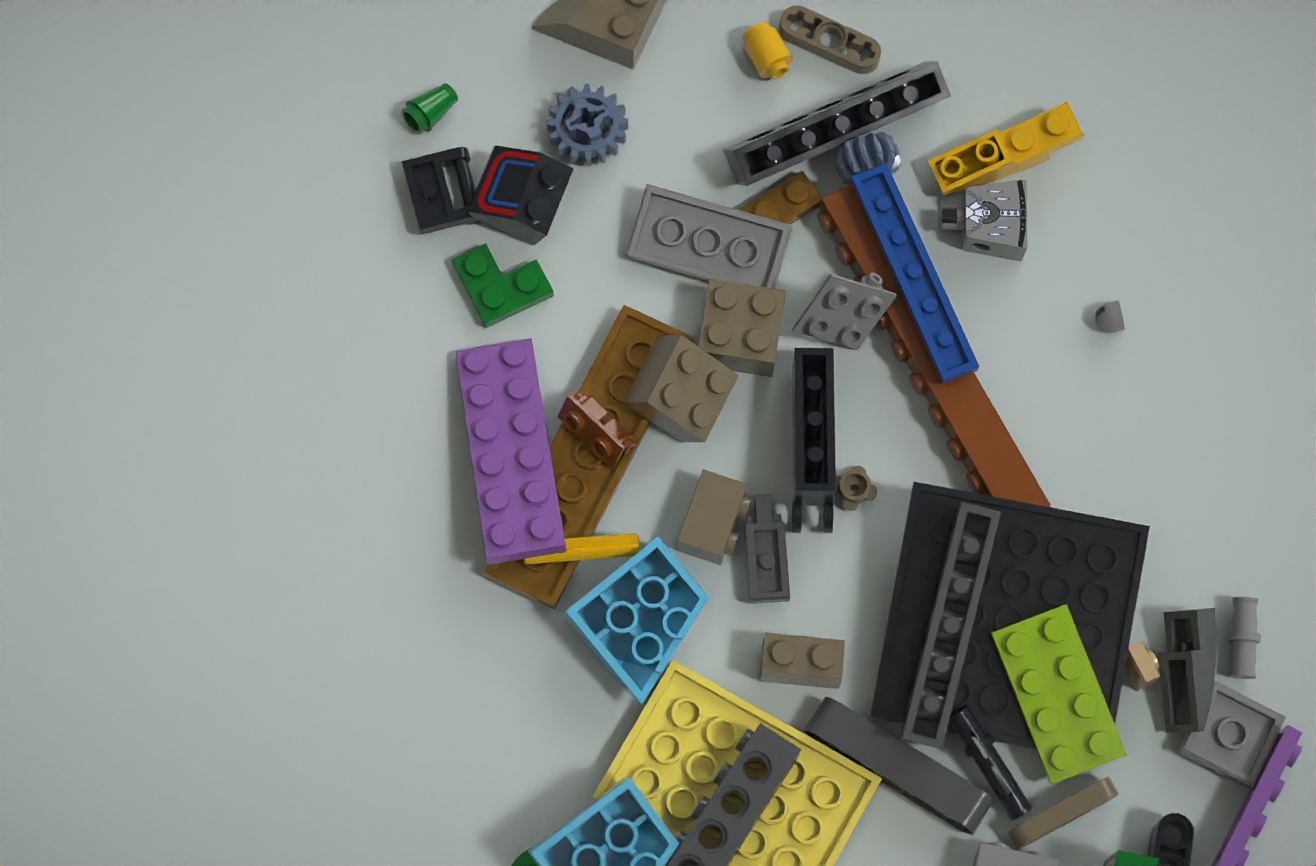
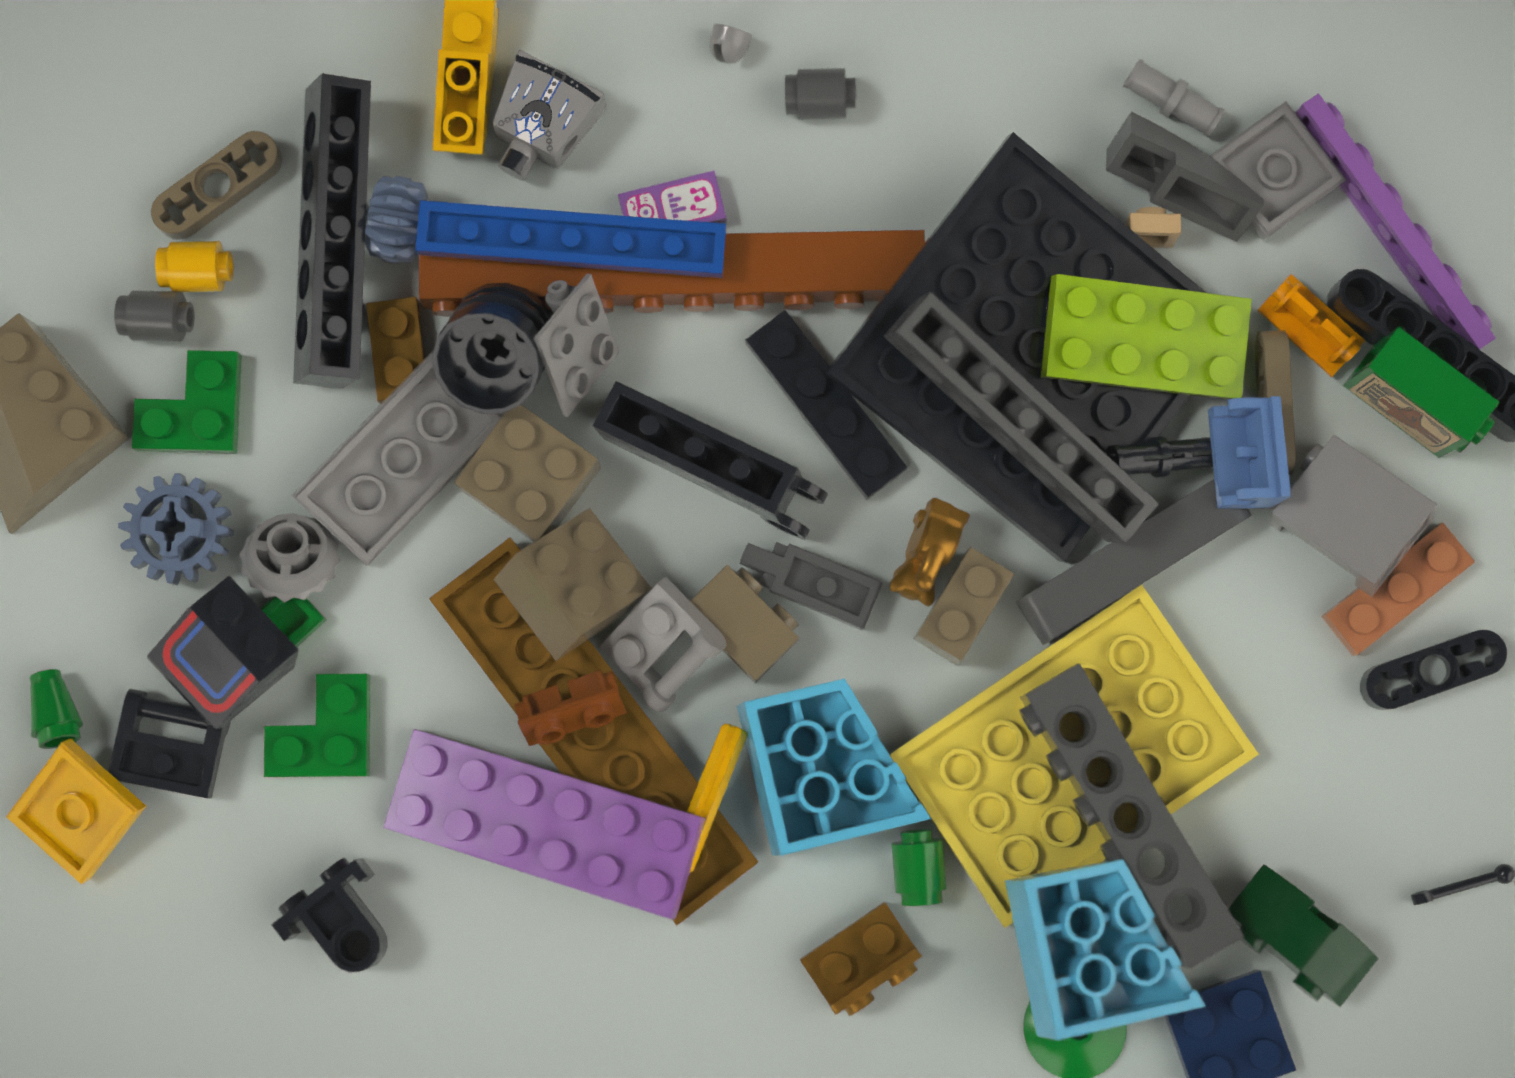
camera: 65 degrees left, 10 degrees up
(371, 153) = (76, 811): none -> yellow plate
(382, 347) = (333, 914): none -> black pin
(522, 711) = (861, 960): none -> pearl gold bracket
(568, 226) = (294, 618): none -> green tile
(604, 719) = (919, 868): none -> green brick
(606, 204) = (289, 557): none -> light grey piece
(671, 458) = (651, 632): none -> light grey plate
(672, 108) = (206, 417): none -> green plate
(721, 43) = (154, 316): none -> dark grey brick
(806, 251) = (476, 366): none -> black wheel
(828, 617) = (929, 548): none -> pearl gold animal
(858, 477) = (792, 429): dark tan plate -> none
(889, 510) = (825, 405): none -> black plate
(984, 338) = (681, 199): none -> tile
(1013, 803) = (1249, 453): none -> medium blue hinge
(1109, 393) = (819, 93): none -> dark grey brick
(1135, 813) = (1311, 325): none -> light orange hinge

